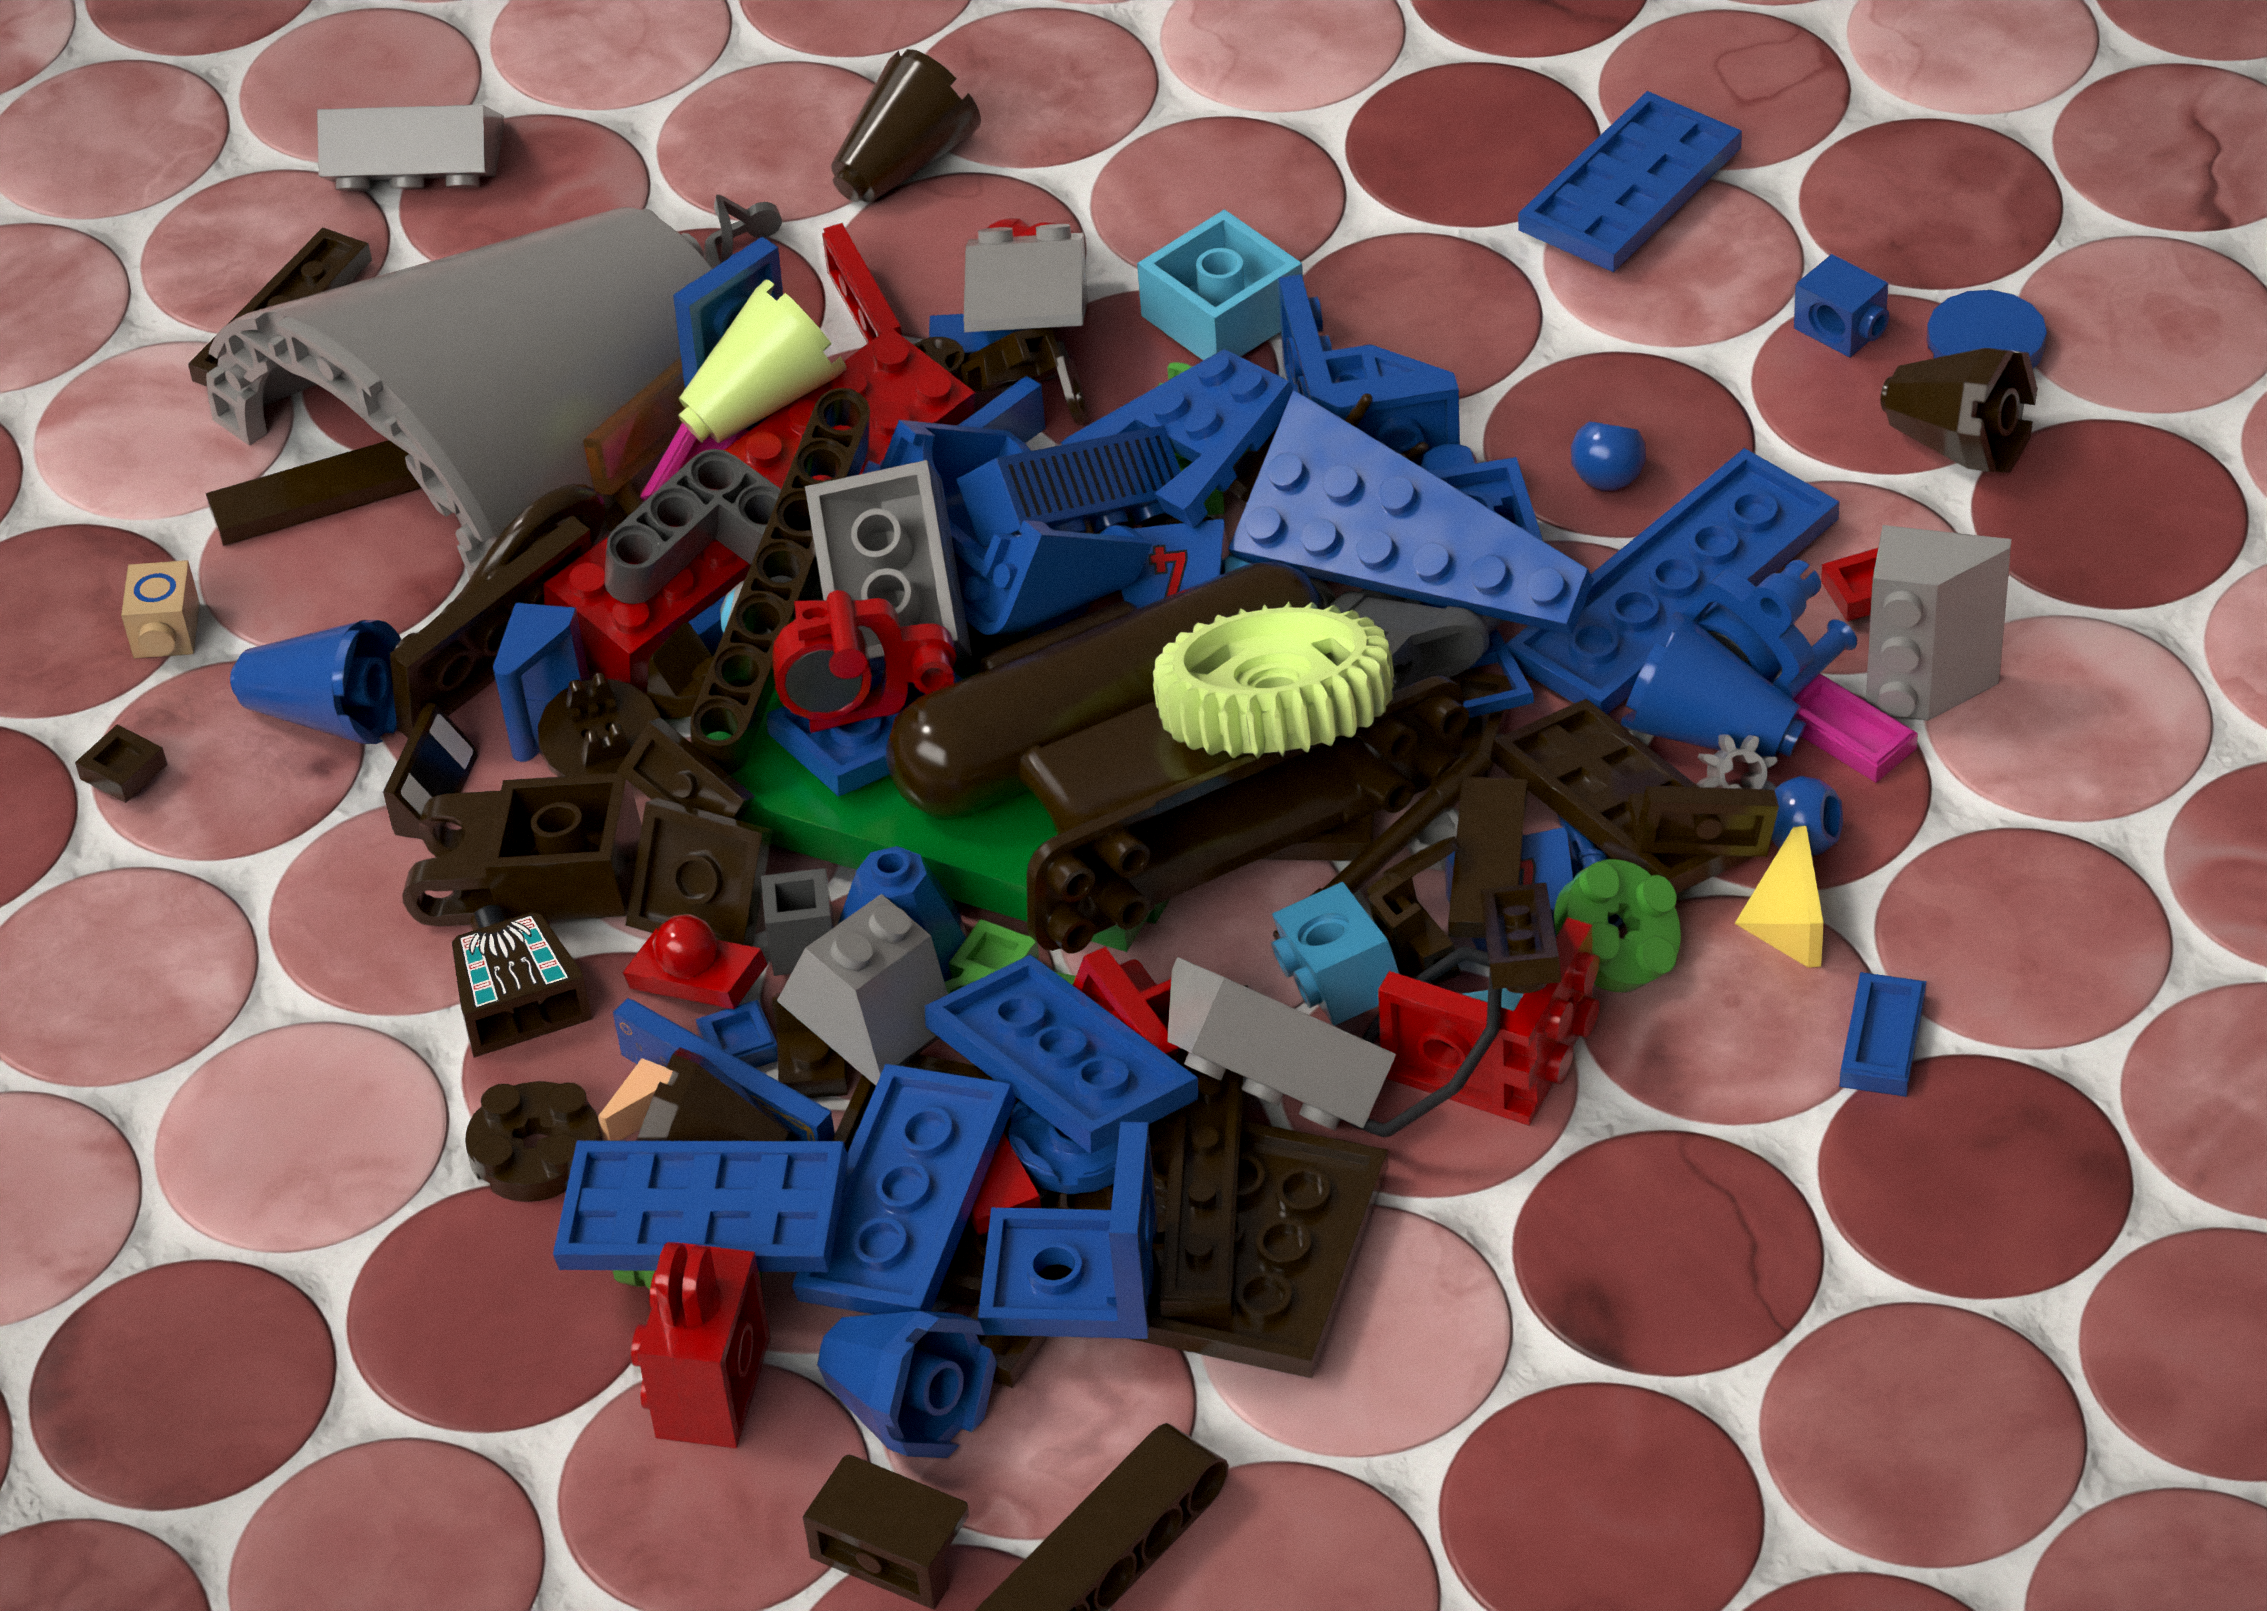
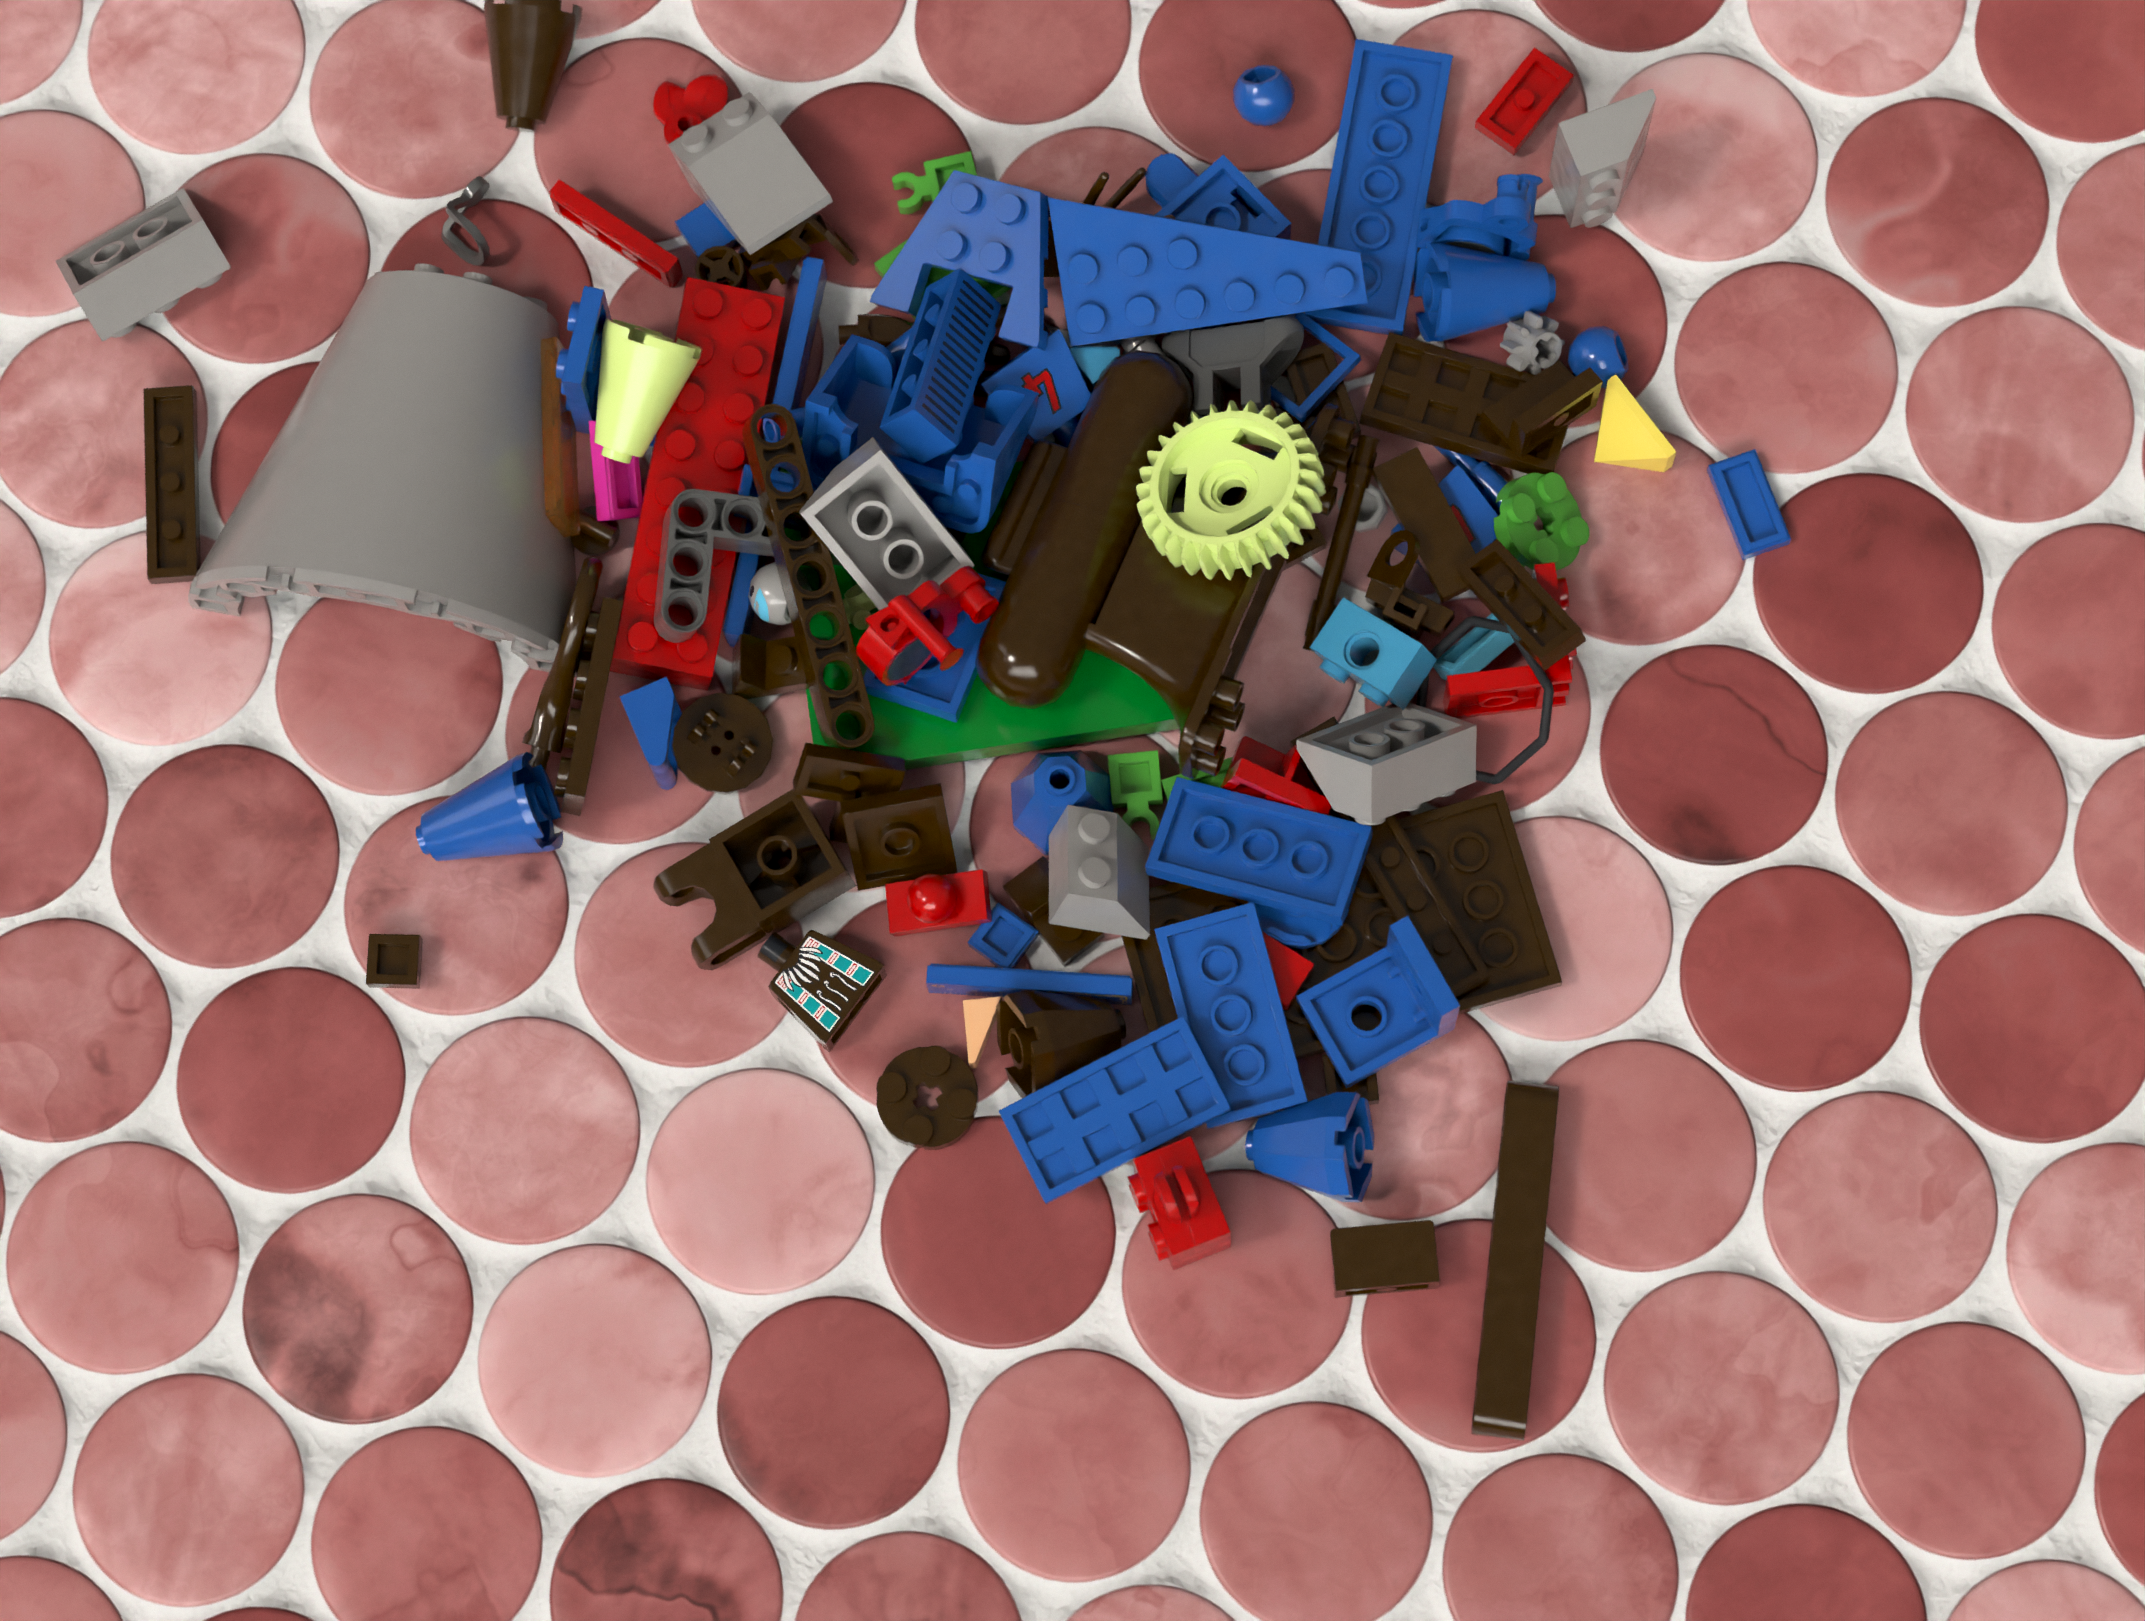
camera: 30 degrees left, 30 degrees up
(160, 609) = (314, 814): tan brick -> none
(310, 491) = (318, 654): dark brown tile -> none
(431, 764) = (627, 845): slope -> none
(795, 914) = (992, 831): dark grey brick -> none
(1216, 287) = (886, 89): medium azure brick -> none
(1409, 396) = (1069, 154): blue bracket -> none
(1853, 729) = (1577, 252): dark pink tile -> none

